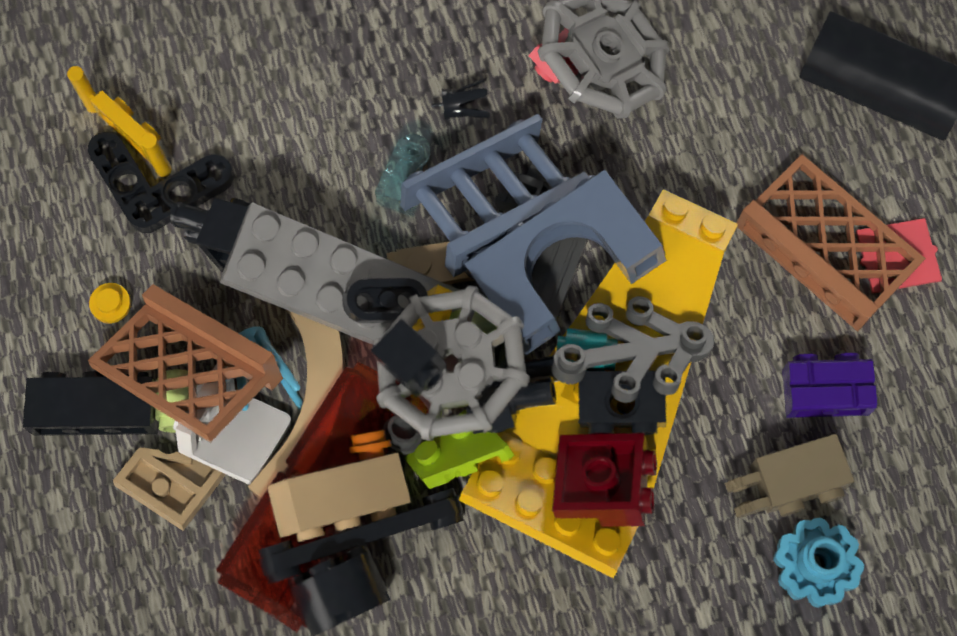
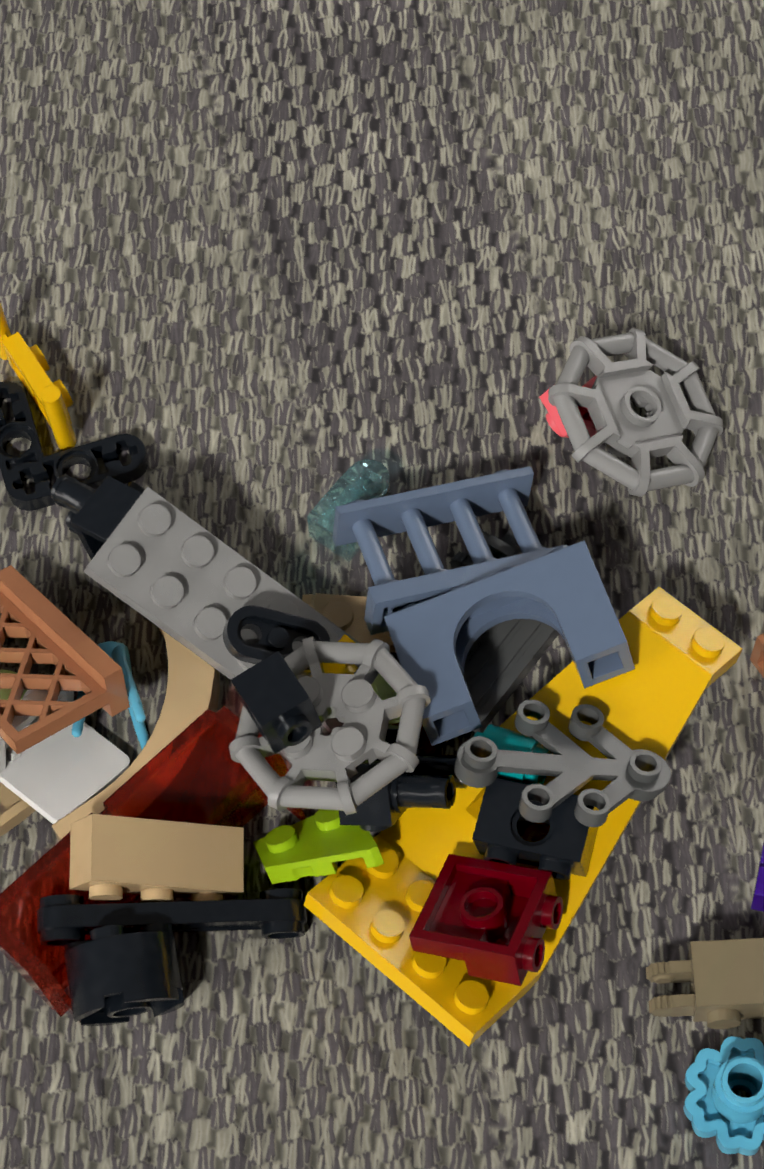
camera: 20 degrees right, 10 degrees down
(369, 444) = (212, 809): orange plate -> none
(402, 435) = (254, 814): dark grey plate -> none
(454, 98) = (437, 432): black piece -> none

